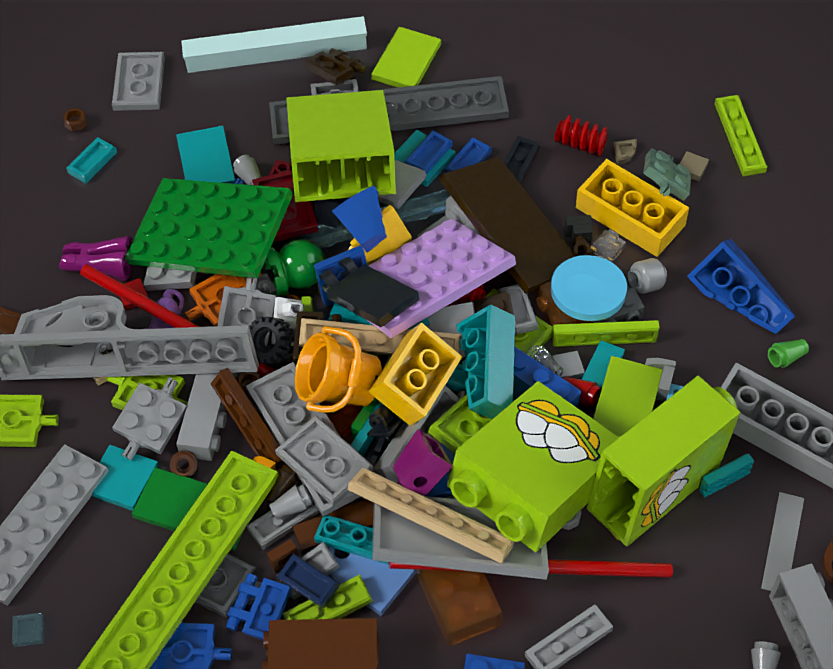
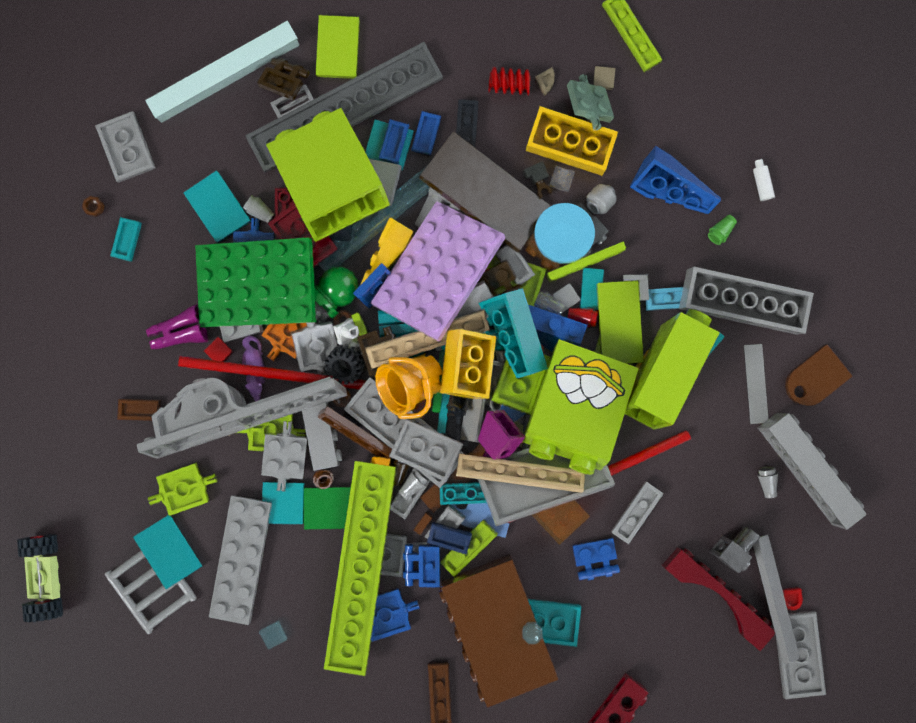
camera: 20 degrees left, 30 degrees up
(363, 218) = (375, 241): blue slope -> none
(368, 292) = (408, 309): black tile -> none

